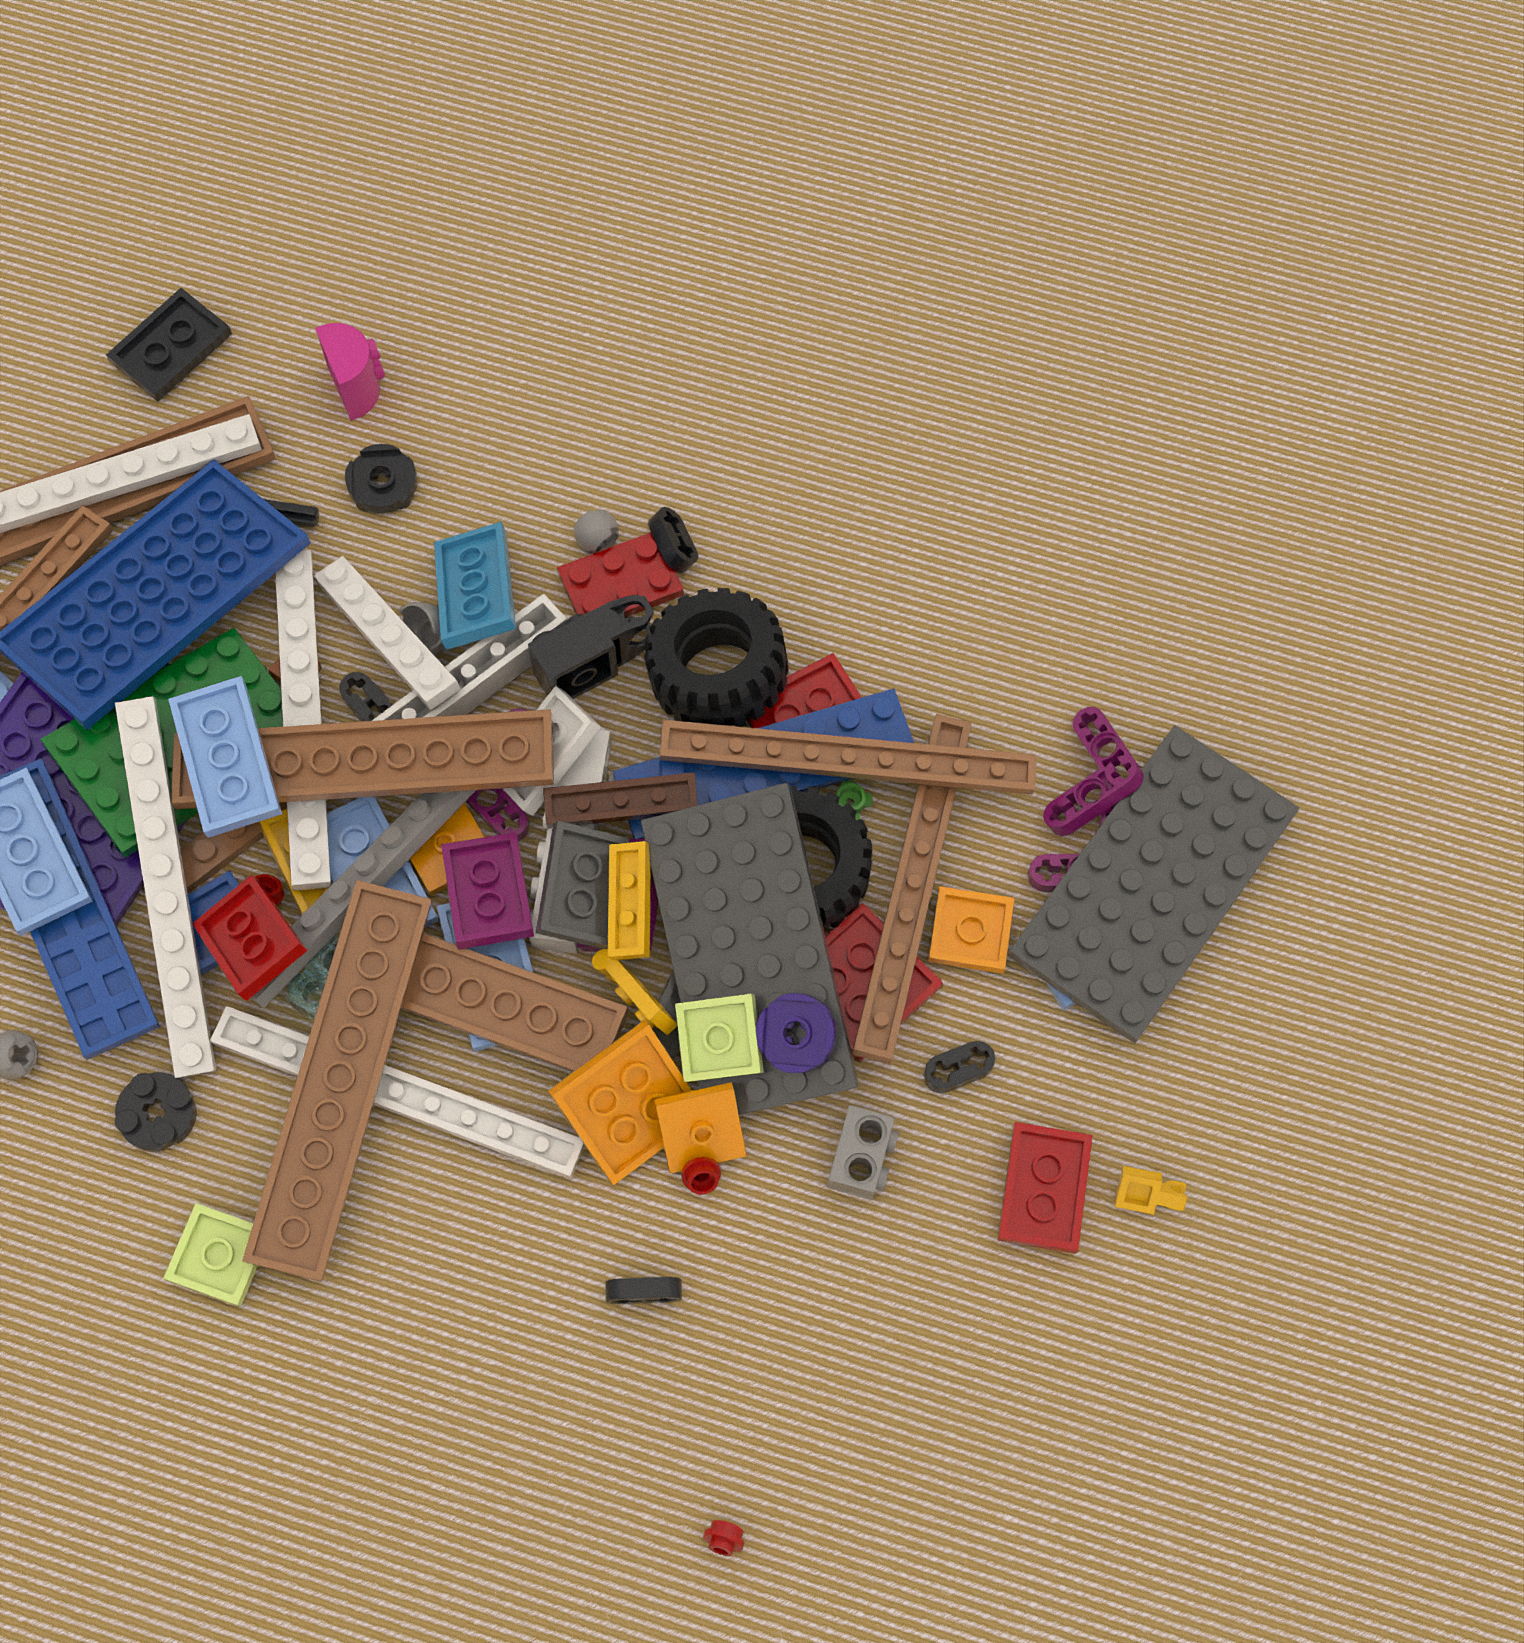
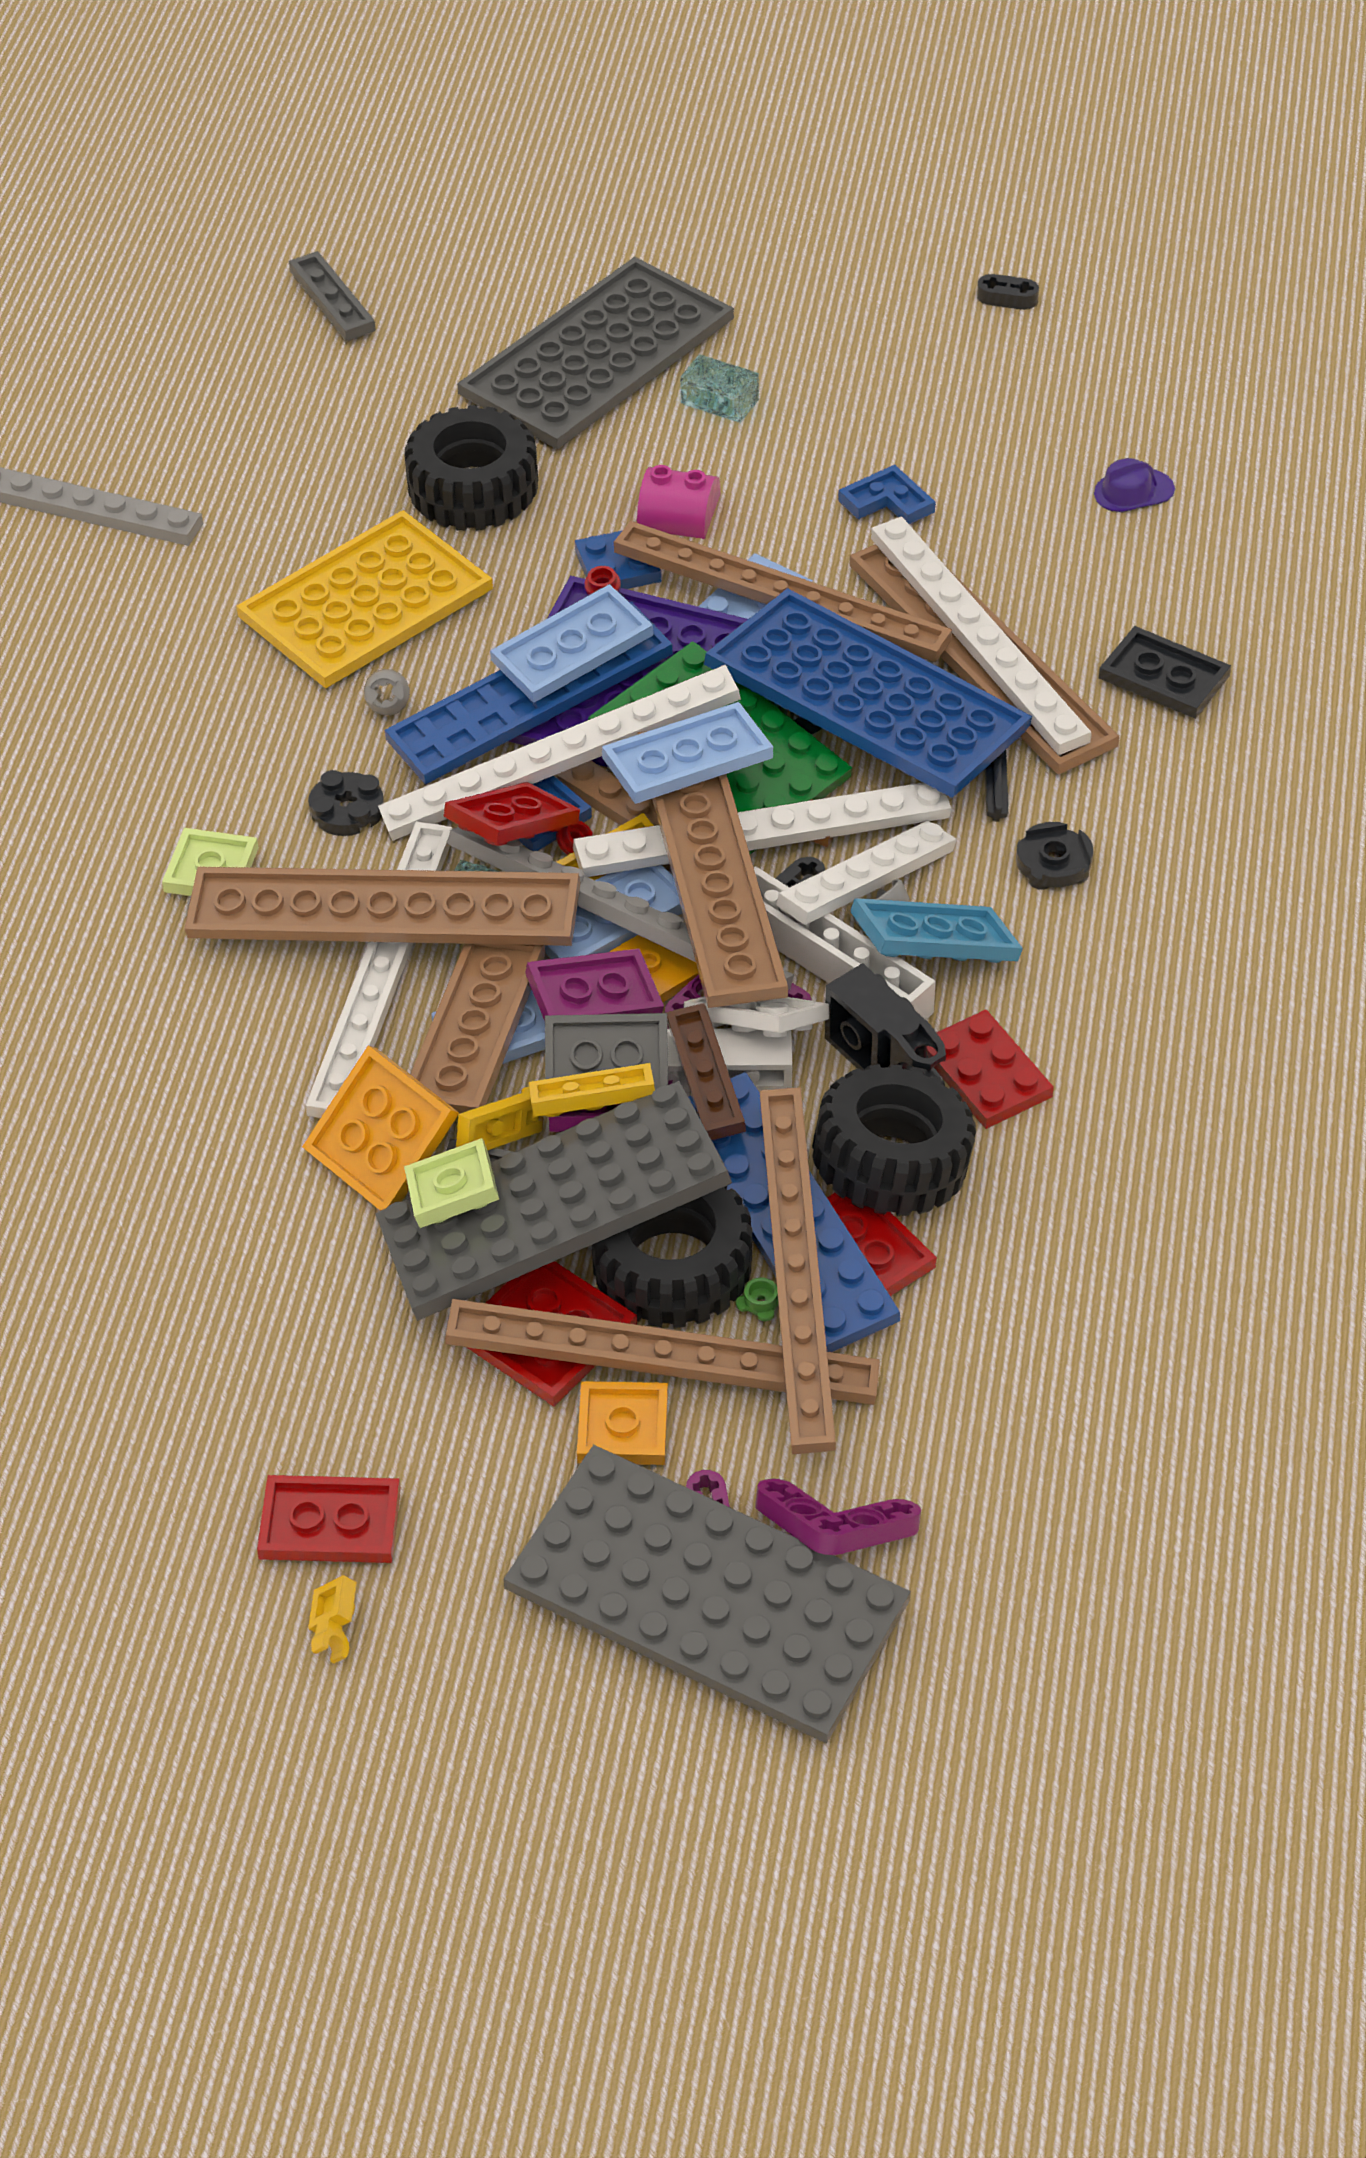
camera: 85 degrees right, 20 degrees down
(352, 365) = (1165, 799): dark pink brick -> none
(596, 530) = (1036, 1033): light grey piece -> none
(643, 1290) = (193, 1181): black beam -> none
(673, 539) = (1048, 1108): black beam -> none
(700, 1126) = (363, 1198): light orange plate -> none
(701, 1175) = (316, 1213): red plate -> none
(779, 1047) = (445, 1250): dark purple plate -> none
(854, 1151) = (344, 1341): light grey brick -> none
(956, 1058) = (469, 1426): black beam -> none

